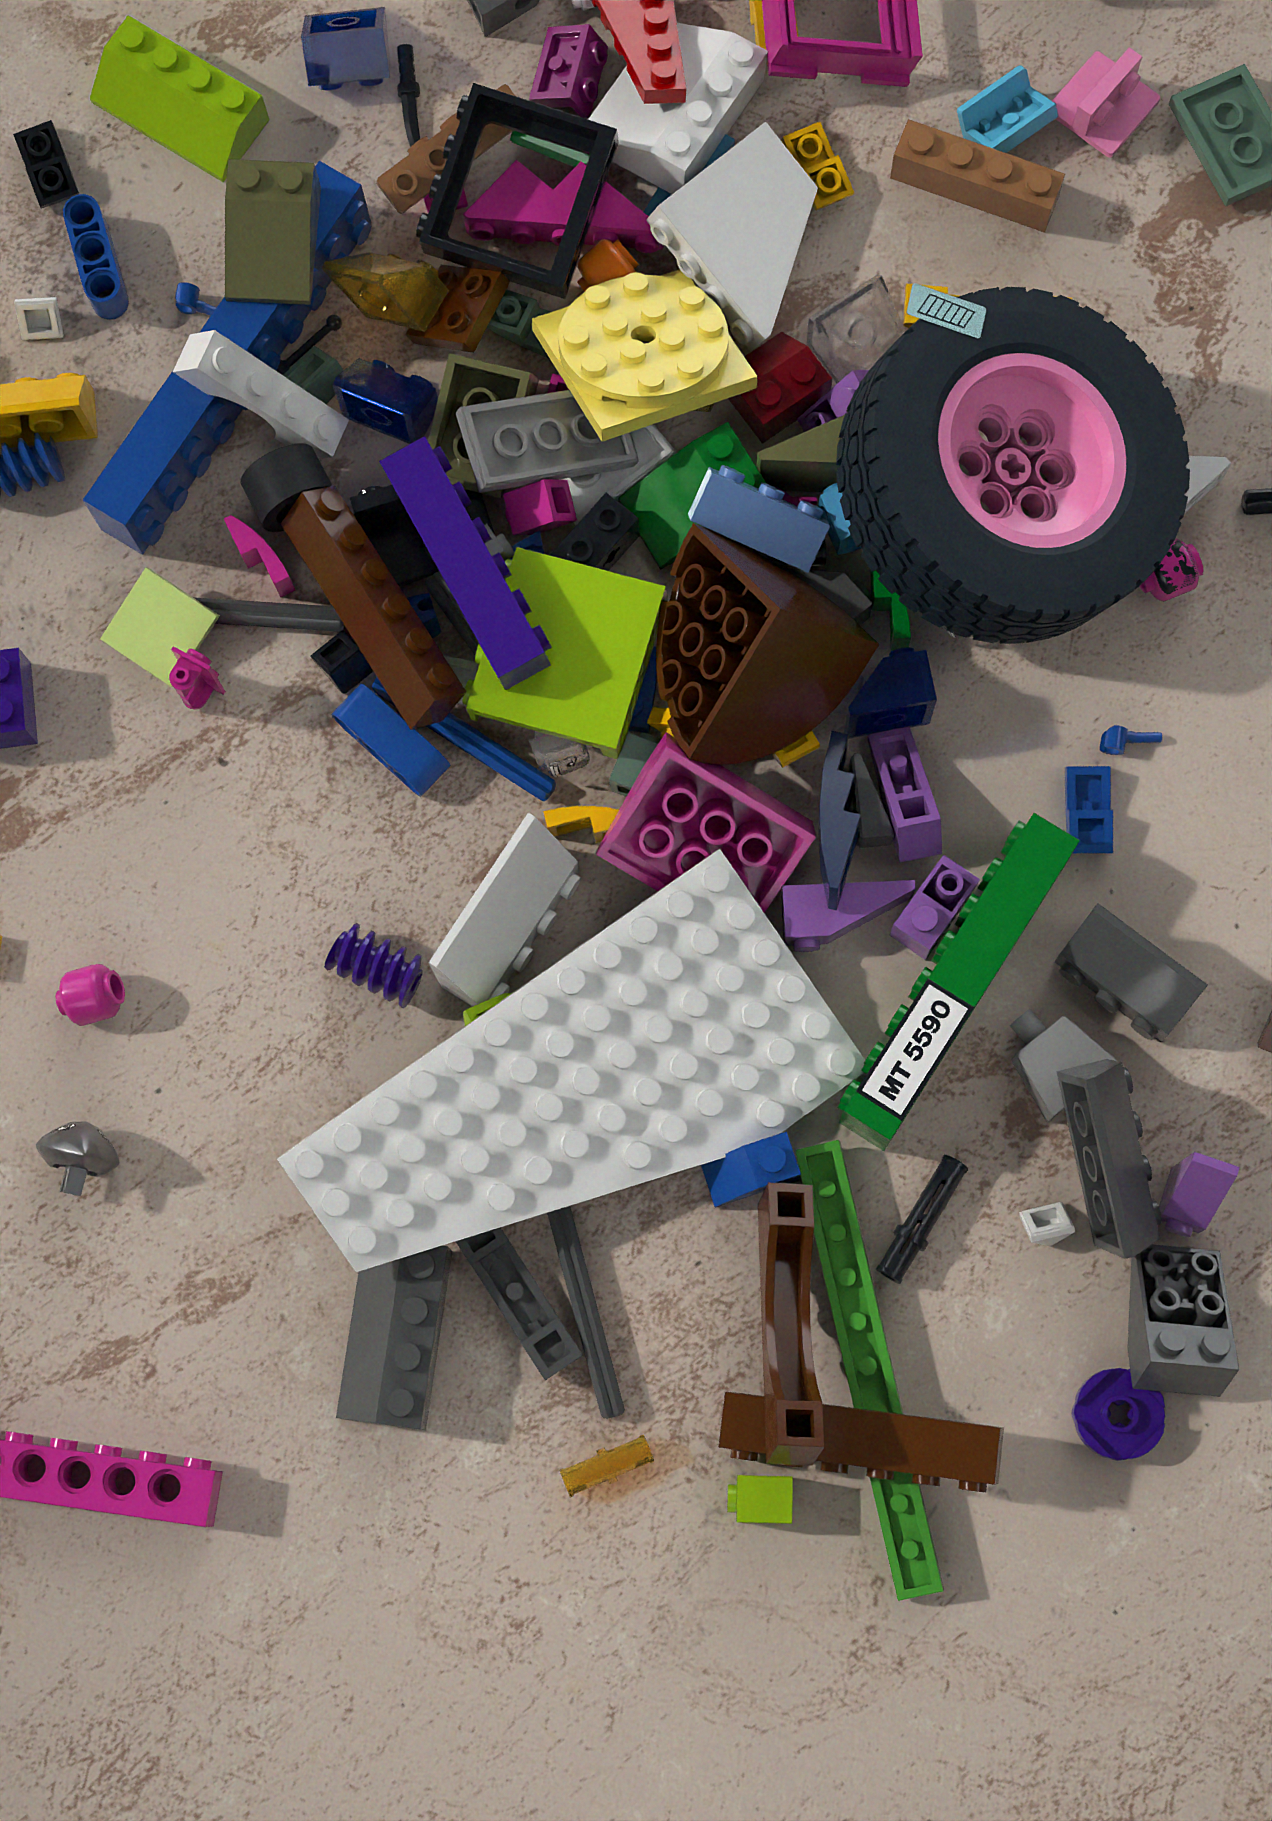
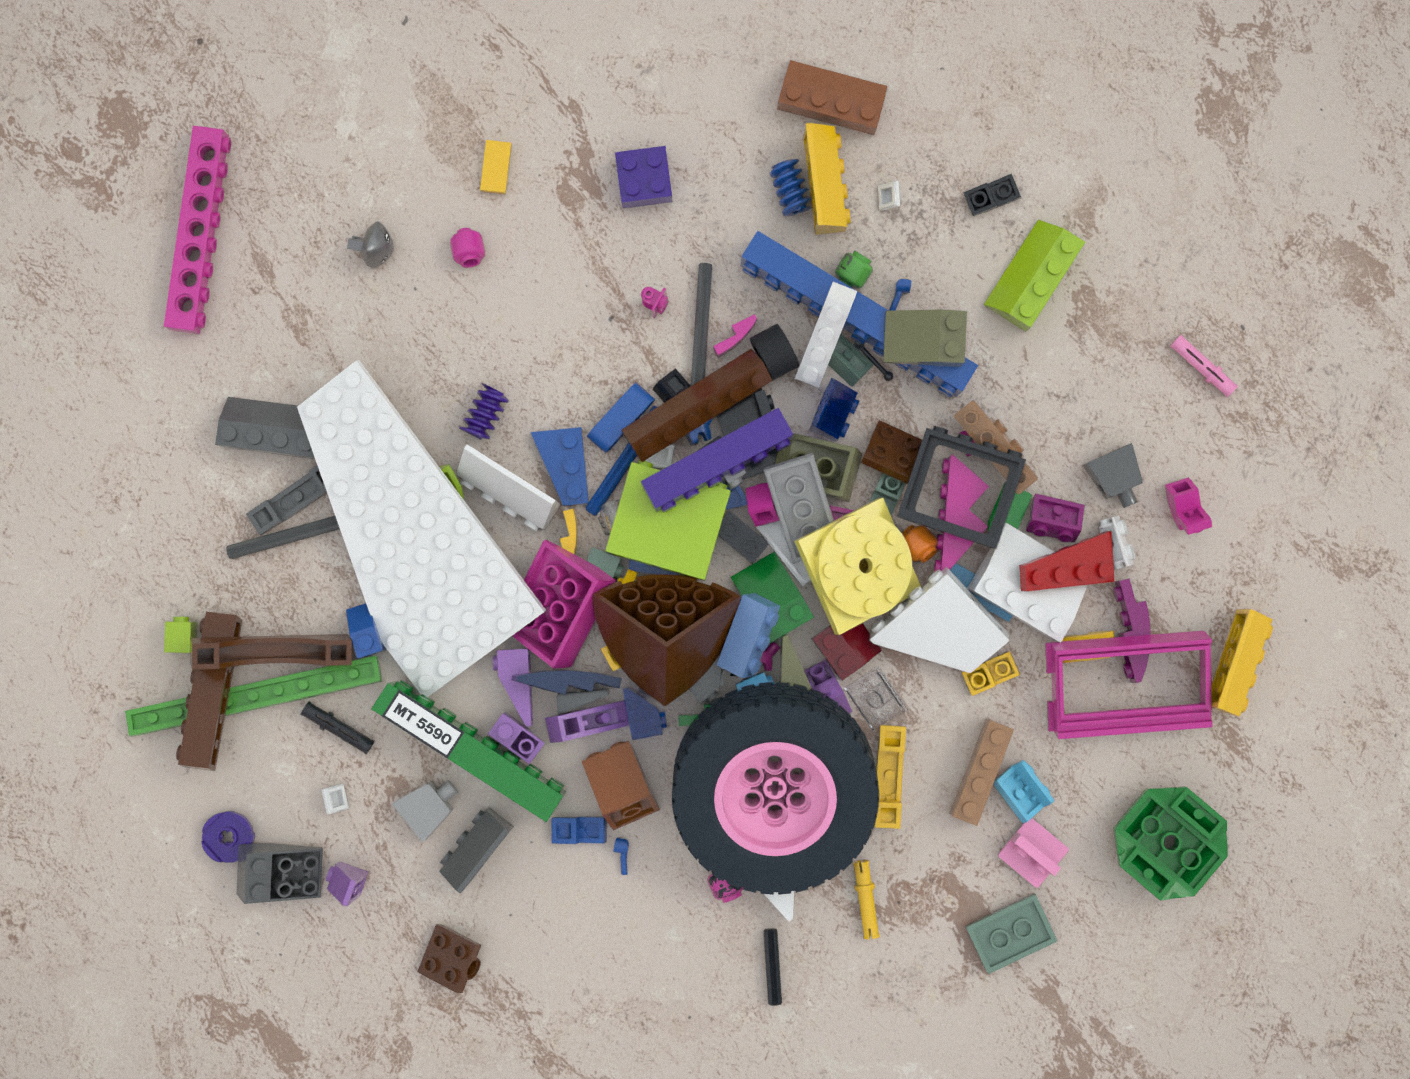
camera: 80 degrees right, 10 degrees up
(92, 239) = (938, 220): blue beam -> none
(151, 366) = (854, 269): none -> bright green head
(155, 620) = (689, 278): yellowish green tile -> none
(346, 48) = (1071, 378): clear blue slope -> none
(389, 288) = (904, 410): clear yellow slope -> none
(408, 90) = (1042, 418): black piece -> none
(460, 834) = (565, 462): none -> blue wing
(606, 1465) = (200, 548): clear yellow pin -> none
(946, 310) = (856, 748): clear light blue sticker -> none
(1010, 736) = (620, 785): none -> dark orange slope
(1110, 1157) = (366, 835): dark grey slope -> none
(1199, 351) = (866, 899): none -> yellow pin

